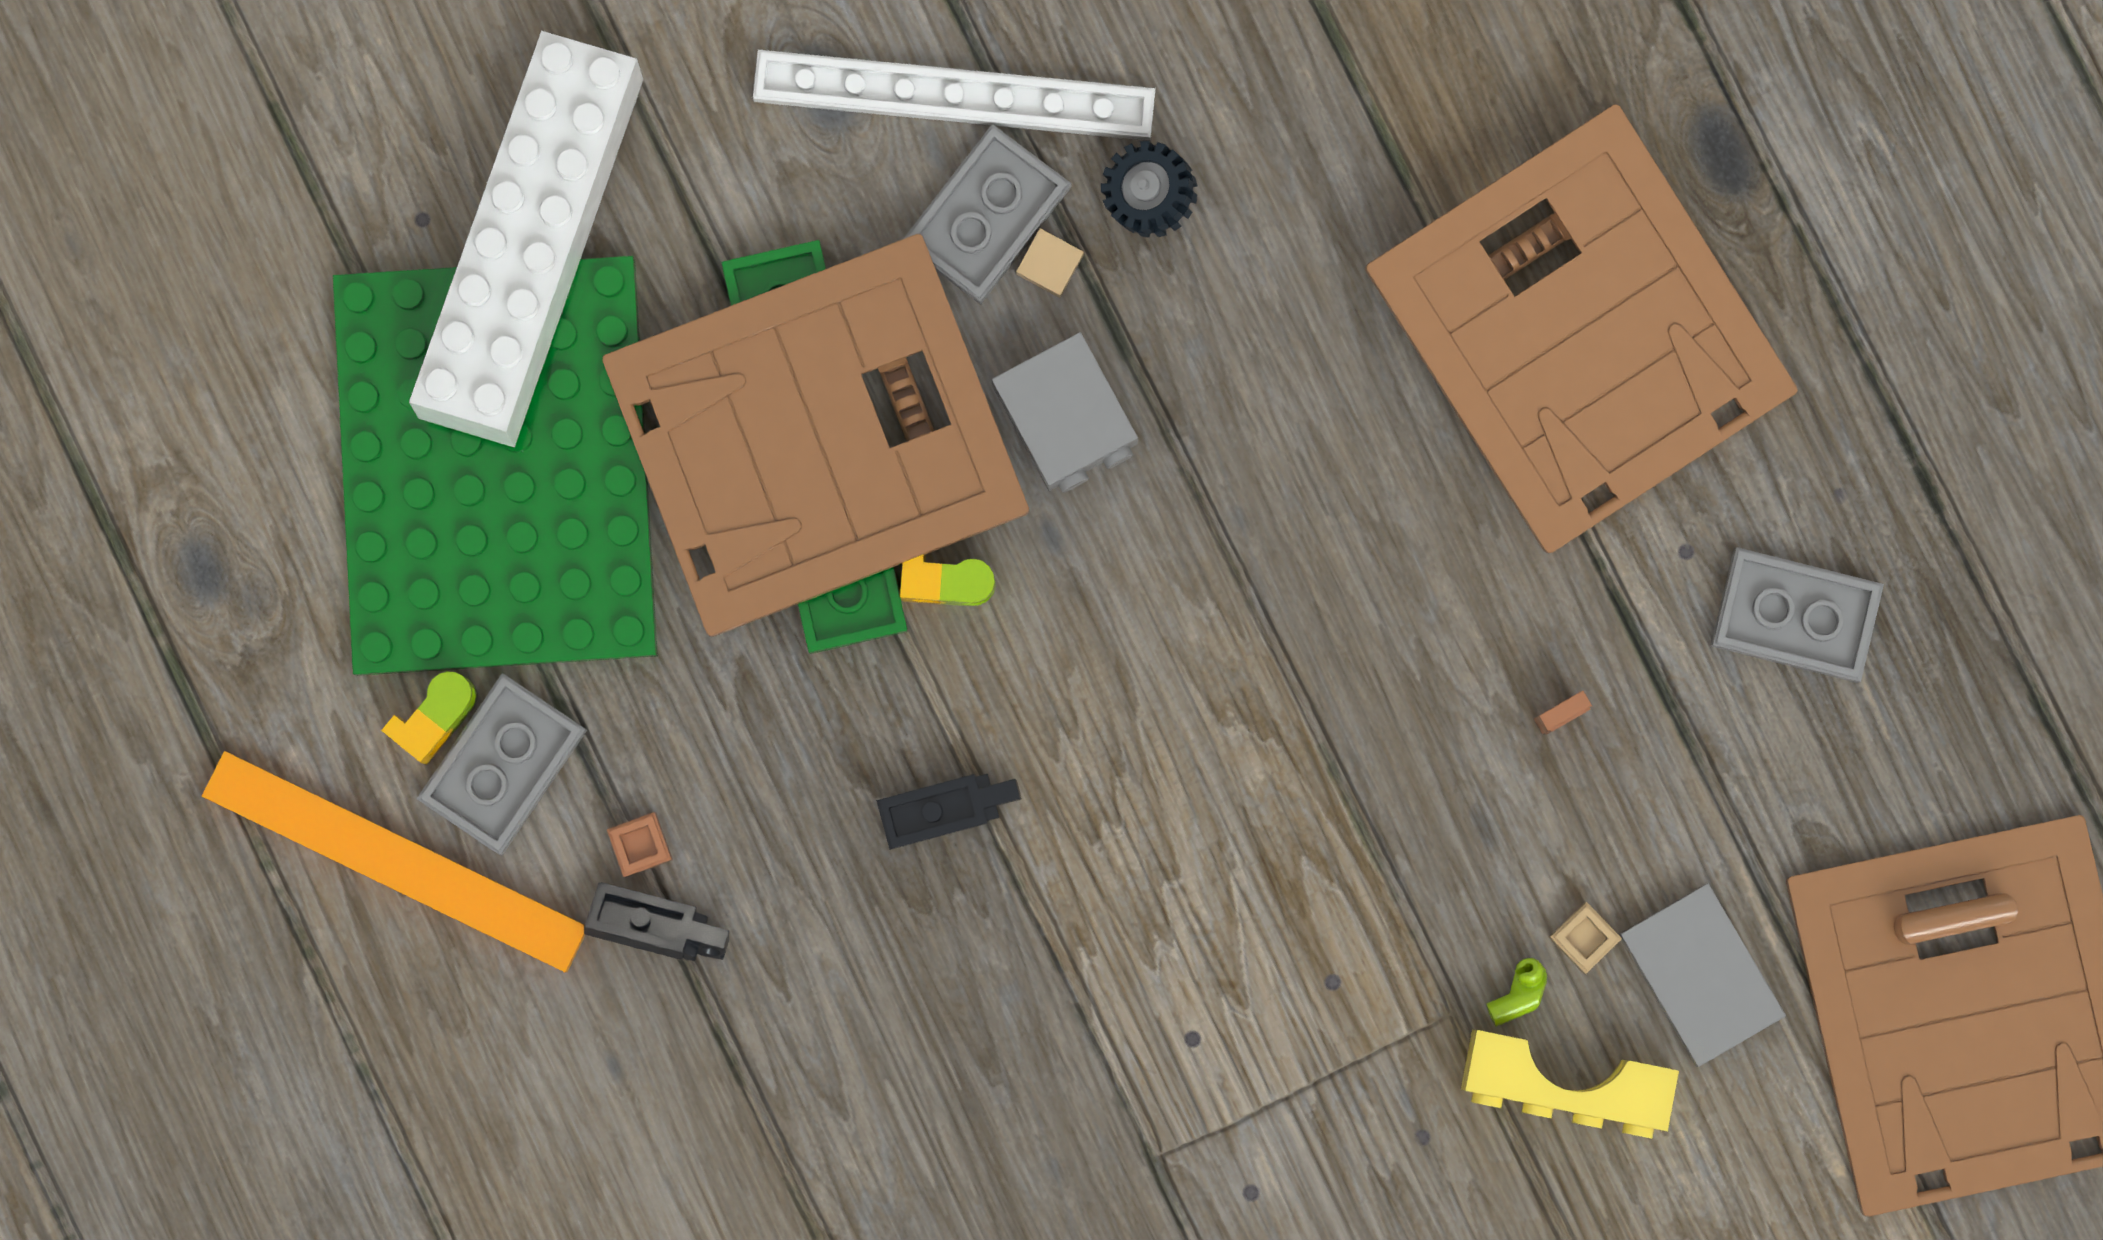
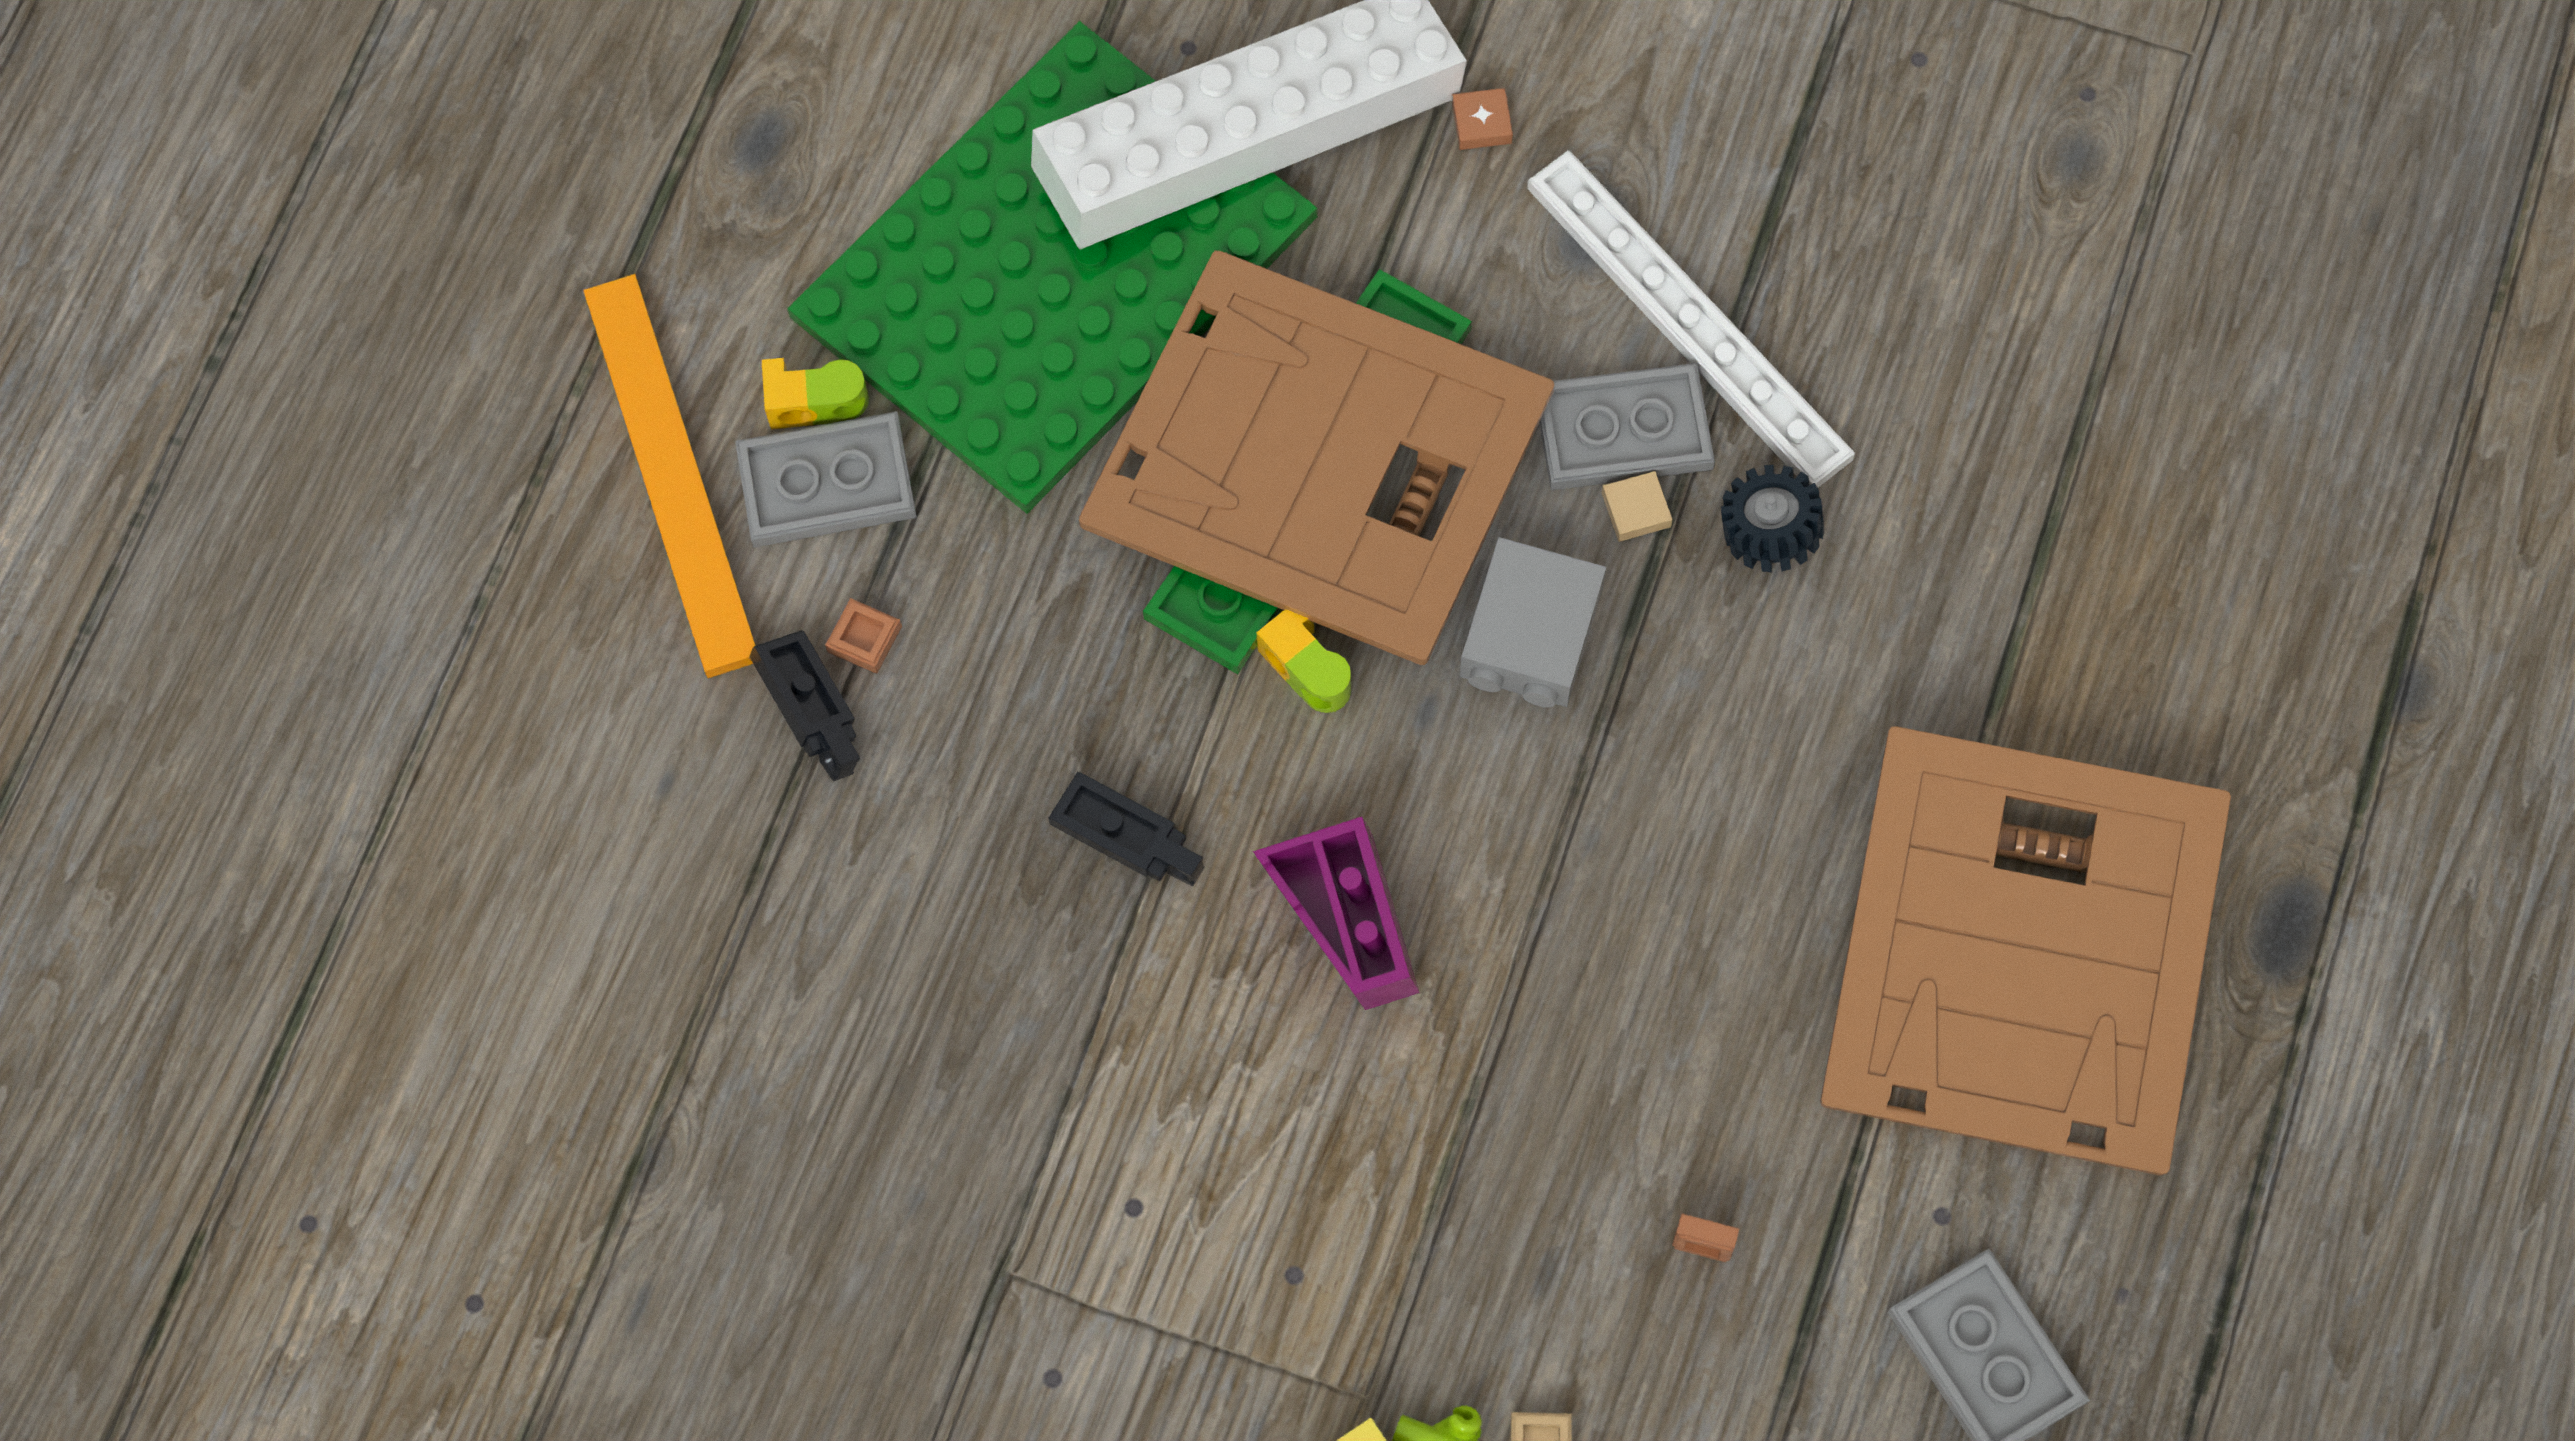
camera: 45 degrees right, 15 degrees down
(676, 81) = (1482, 118): none -> nougat tile
(1141, 724) = (1346, 905): none -> magenta wedge

